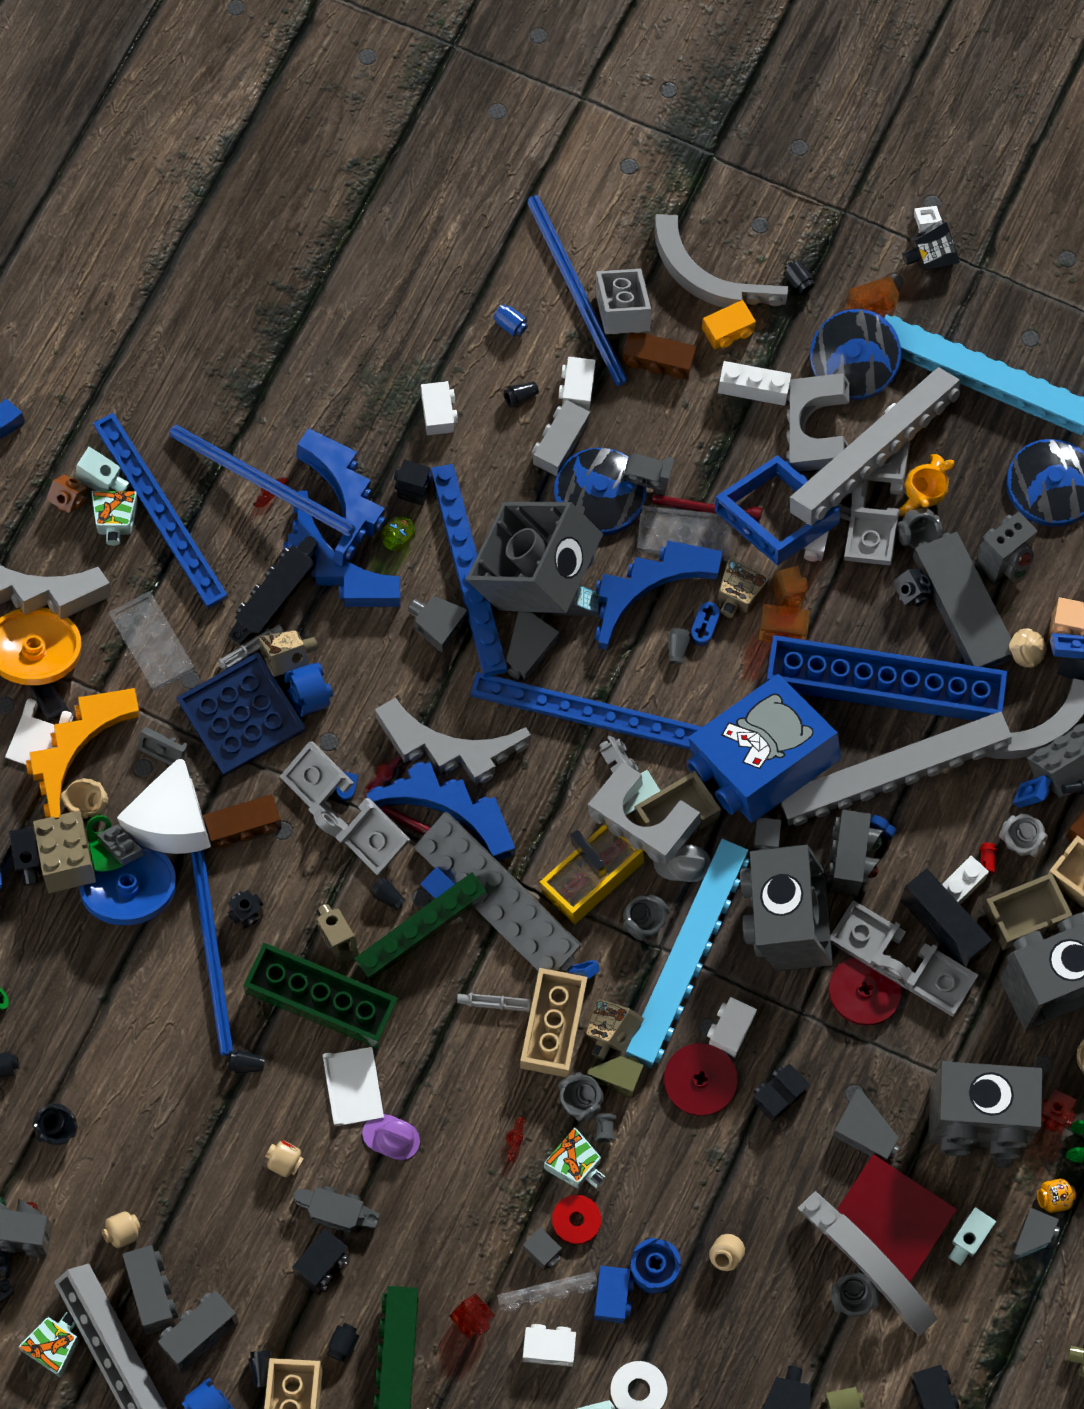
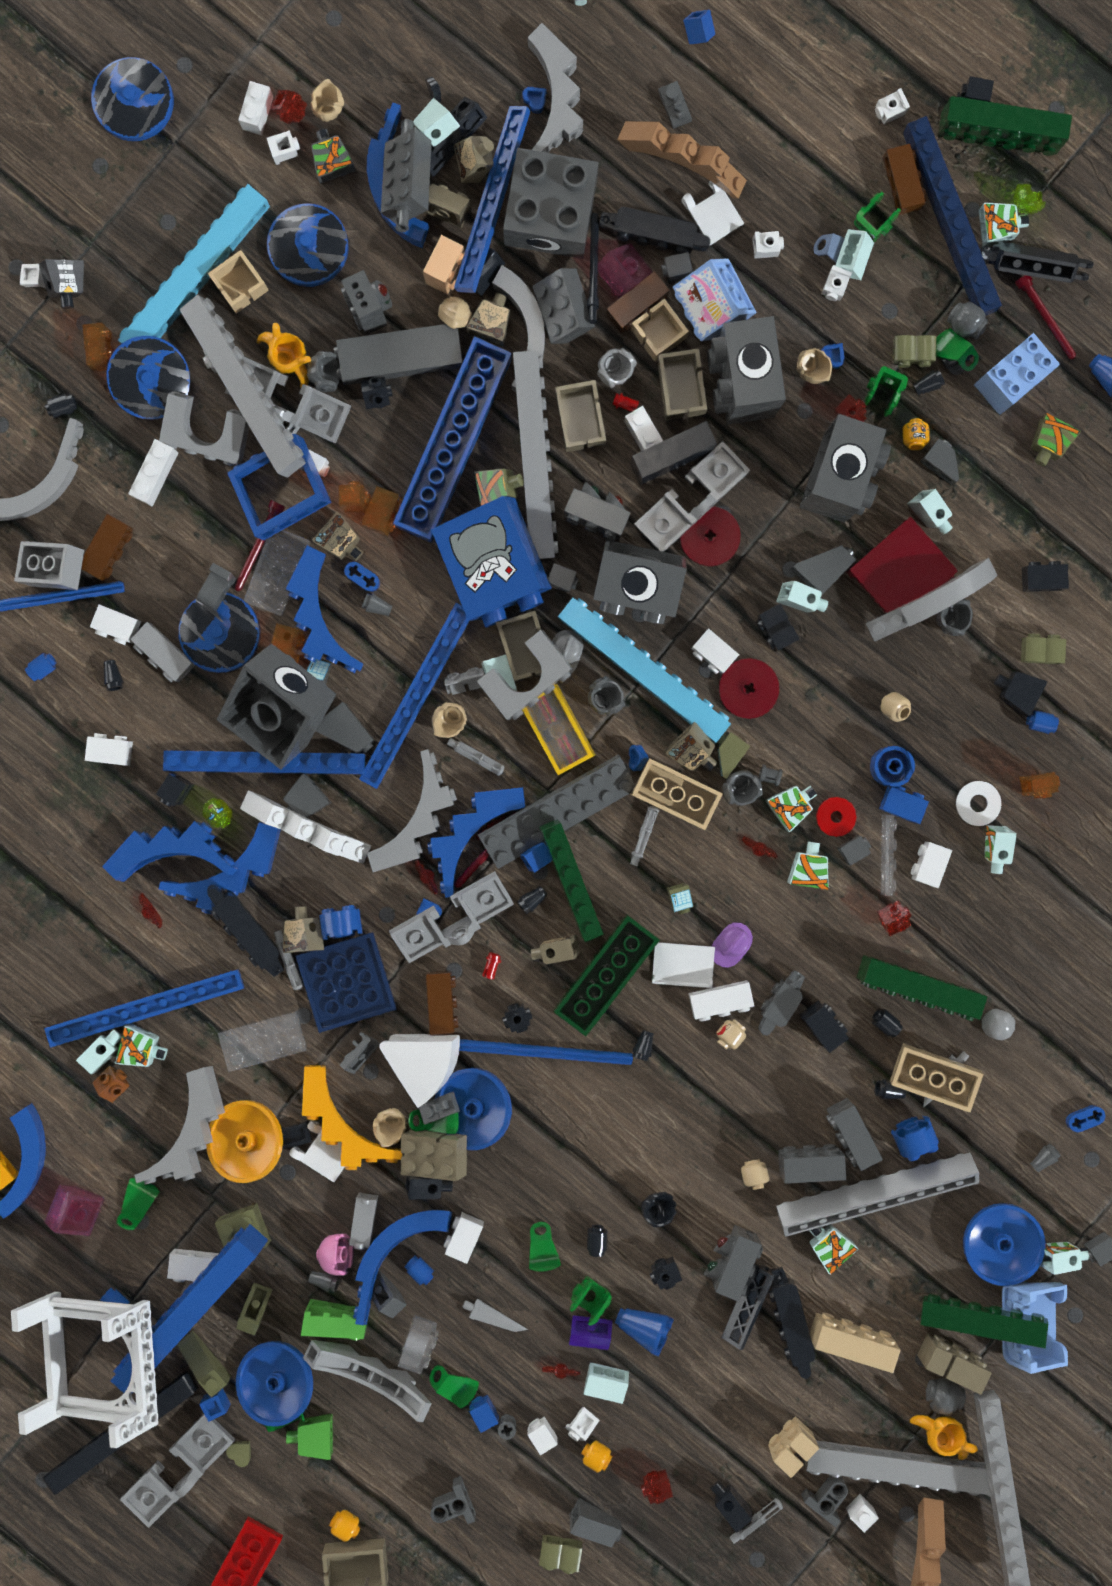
camera: 70 degrees left, 20 degrees up
(262, 480) = (140, 919): blue axle -> none
(299, 867) = (491, 965): none -> red pin
(322, 1138) = (721, 1000): none -> white brick
(405, 626) = (304, 828): none -> white arch
(432, 1057) = (680, 898): none -> slope
(506, 1202) = (810, 868): none -> torso
(536, 794) = (476, 756): none -> light grey piece
(569, 751) = (448, 720): none -> tan hair
(588, 854) = (548, 730): black tile -> none
(609, 560) = (288, 640): none -> clear orange brick
(728, 325) = (92, 479): light orange brick -> none
(824, 1098) = (801, 597): none -> light aqua torso
(853, 738) = (497, 483): none -> torso
(881, 824) = (578, 481): blue tile -> none
(956, 809) = (579, 417): none -> dark tan piece
(990, 419) = (238, 281): none -> tan piece
(1032, 690) = (491, 320): none -> torso
(1032, 791) = (582, 348): blue plate -> none

